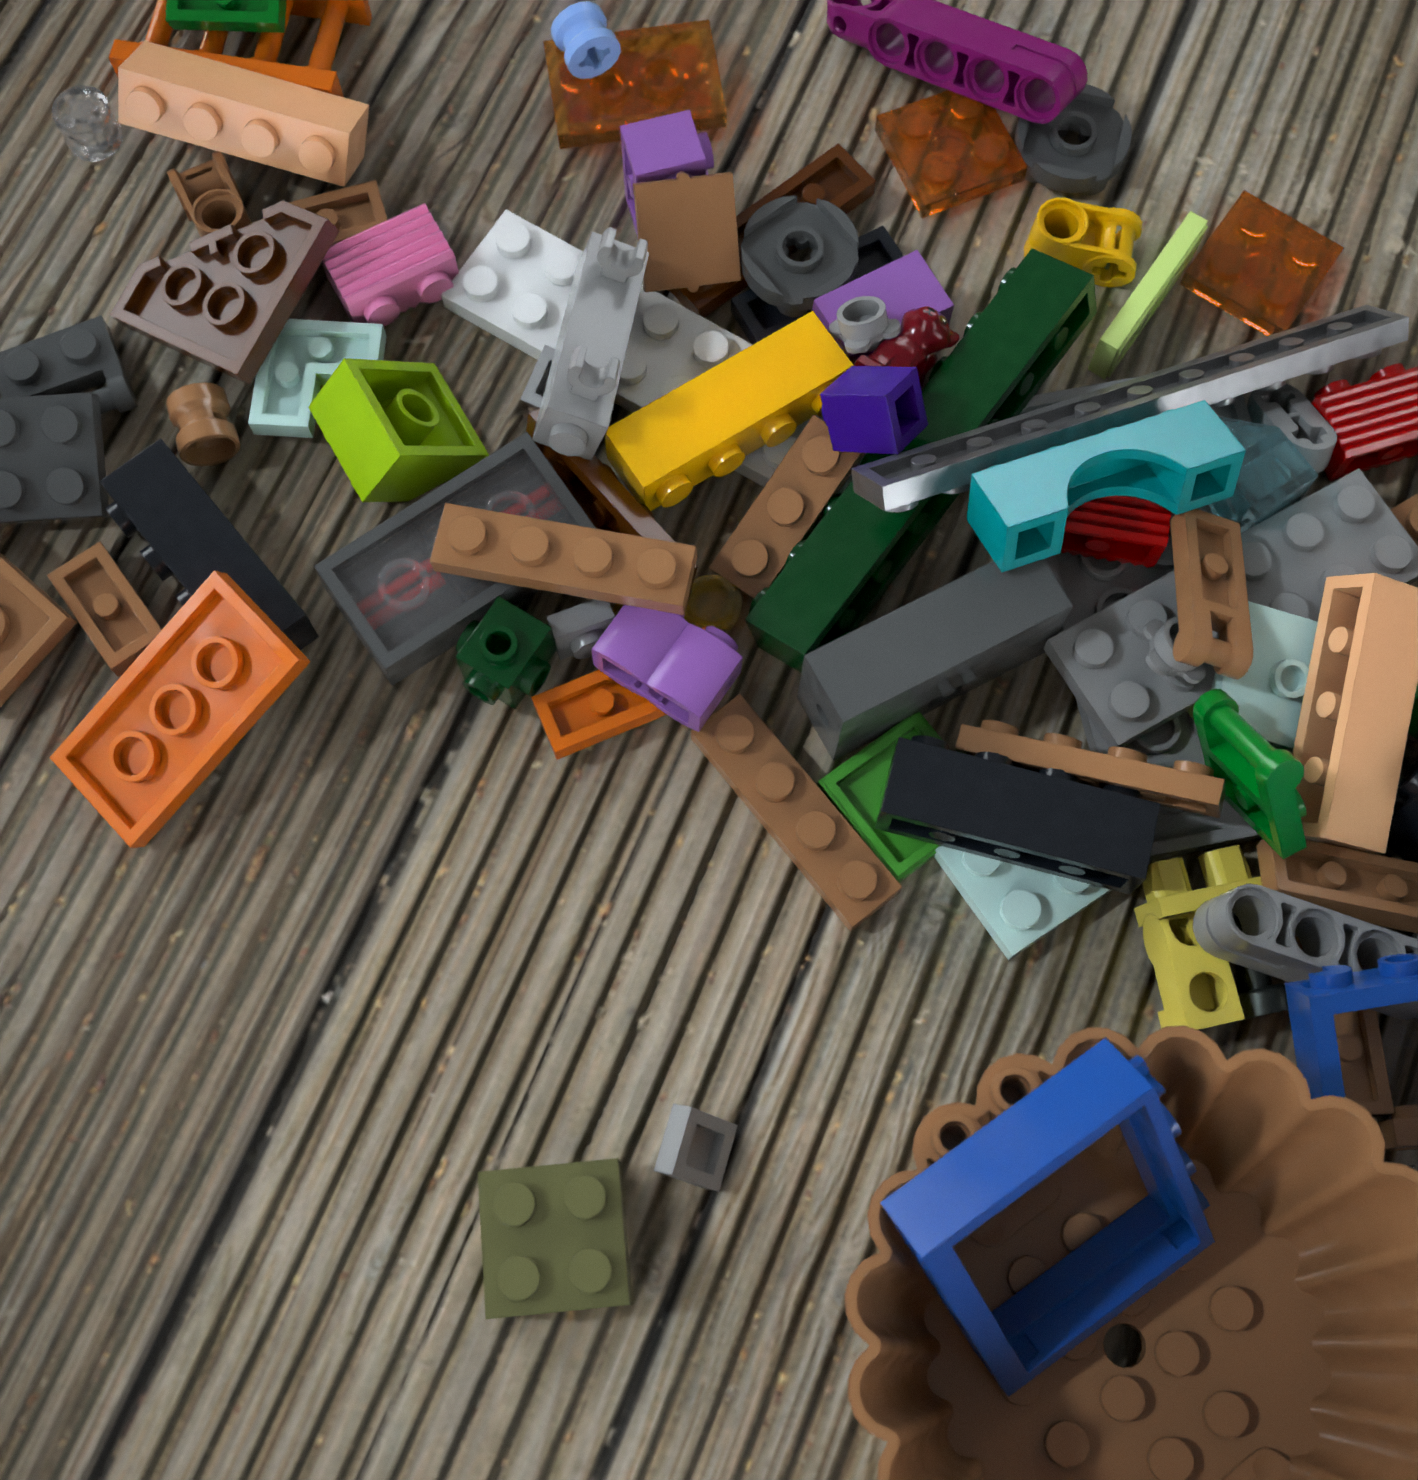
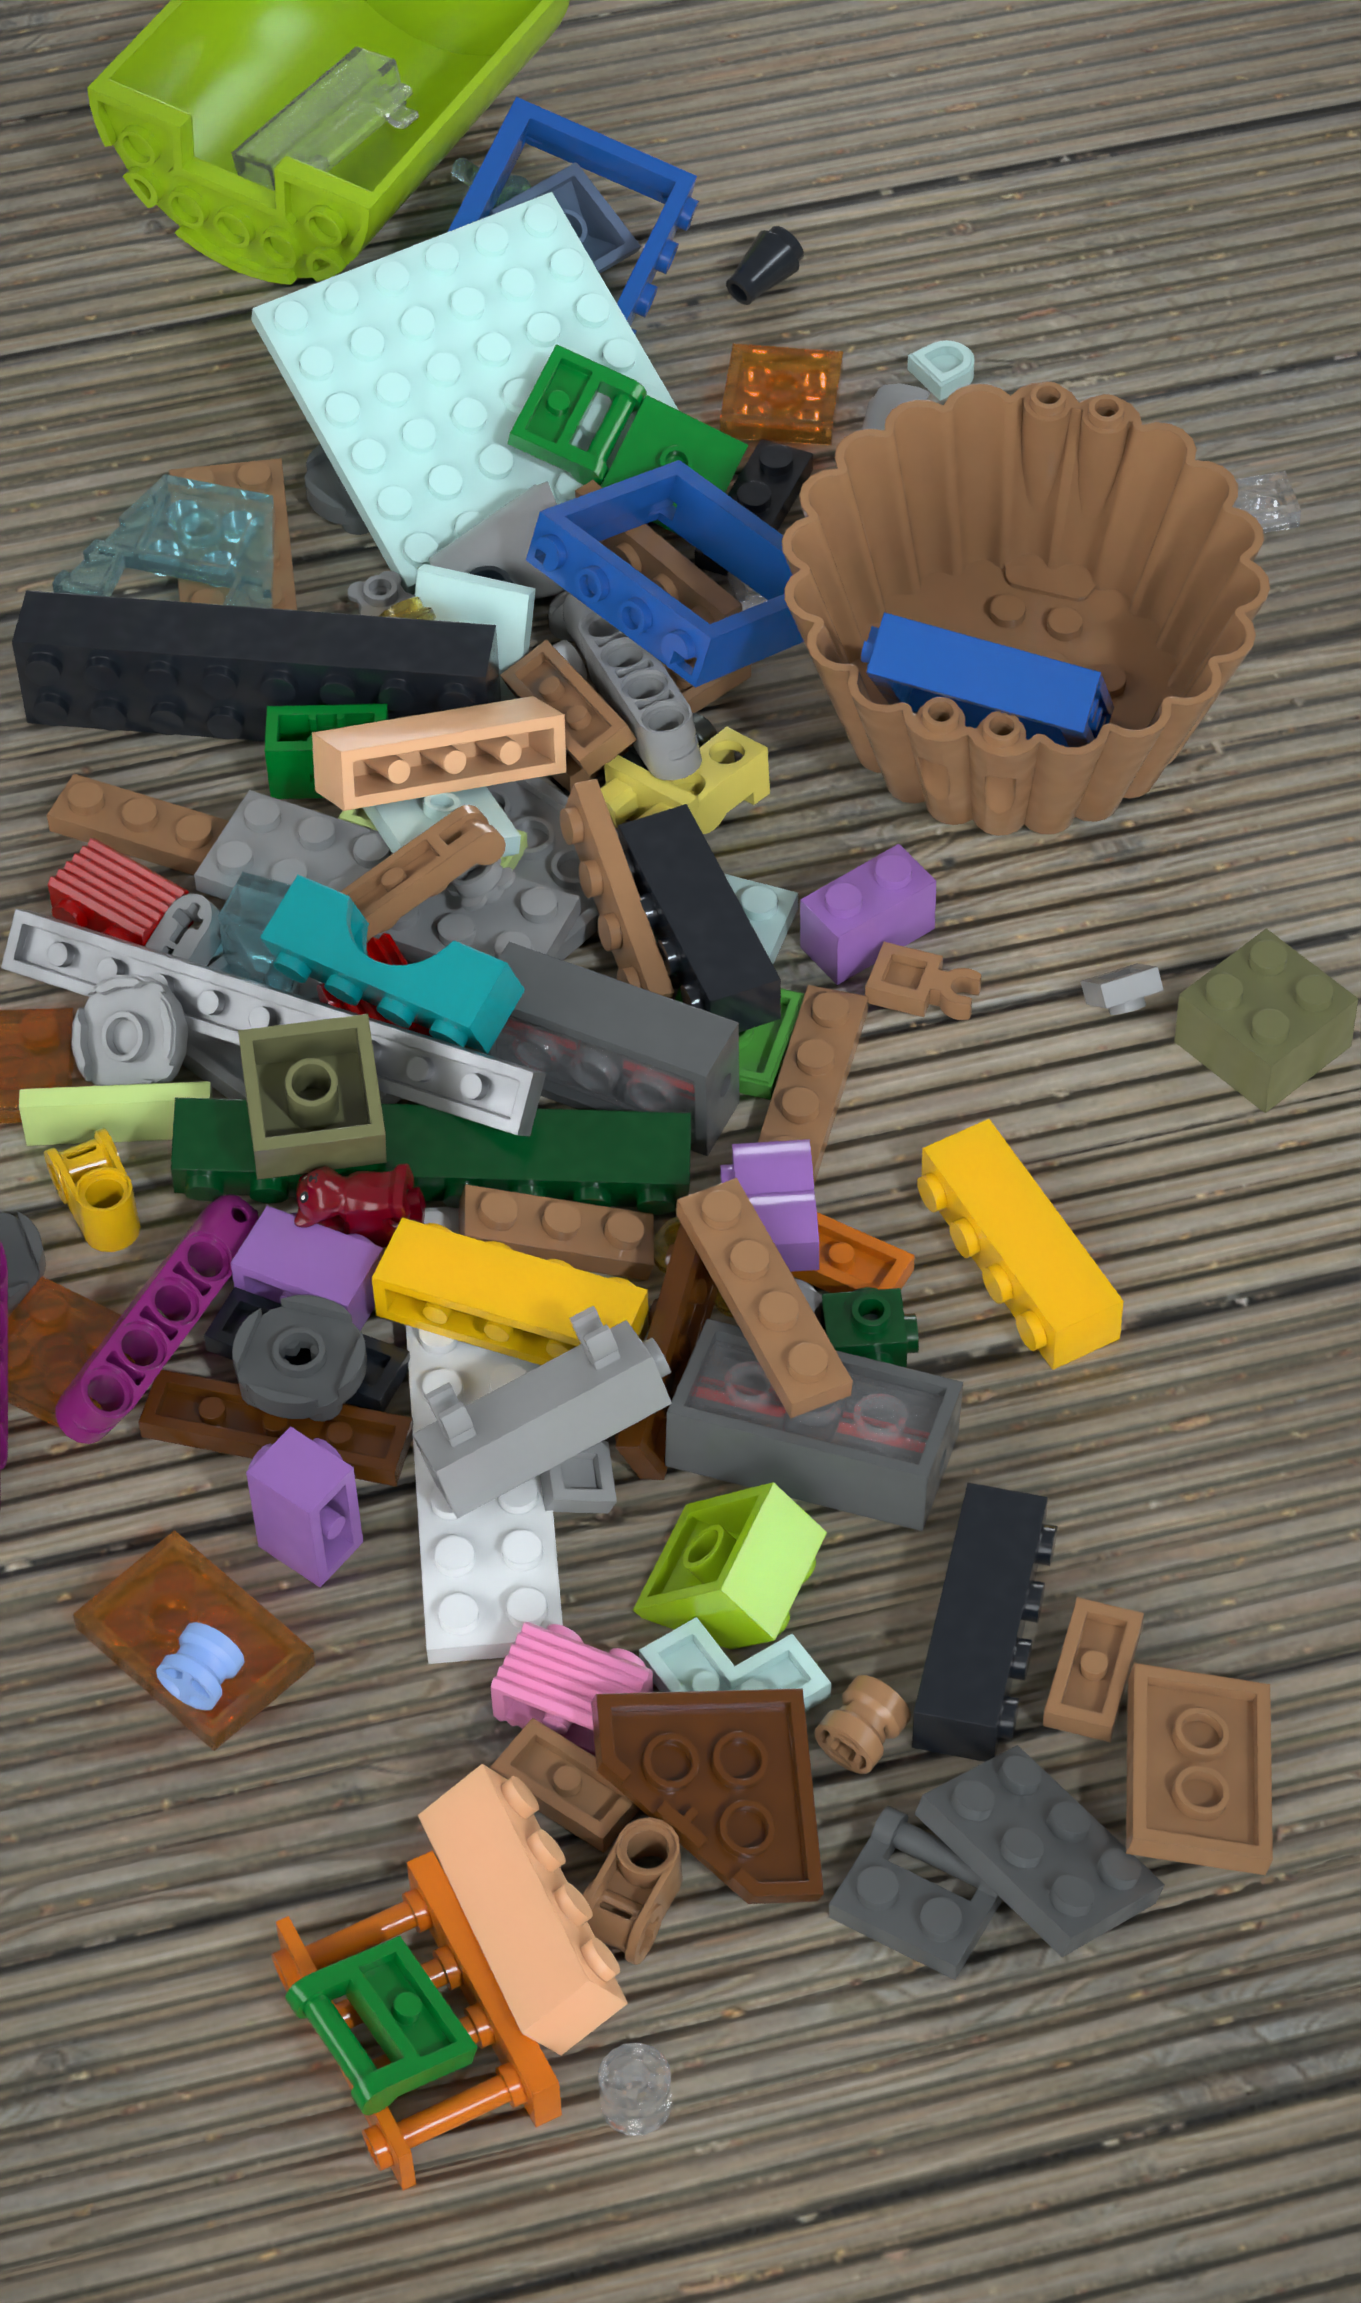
camera: 125 degrees left, 20 degrees down
(179, 709) = (1131, 1512): orange plate -> none
(502, 843) = (1020, 1245): none -> yellow brick
(688, 231) = (356, 1431): medium nougat piece -> none
(841, 974) = (913, 979): none -> medium nougat plate
(863, 324) = (345, 1218): light grey plate -> none
(874, 409) = (442, 1165): dark purple brick -> none
(937, 986) = (873, 904): none -> medium lavender brick
(964, 270) = (145, 1332): none -> magenta piece
(1000, 336) = (312, 1096): none -> olive brick
(1219, 334) = (130, 1032): none -> light grey tile
(1256, 775) = (551, 775): green plate -> none

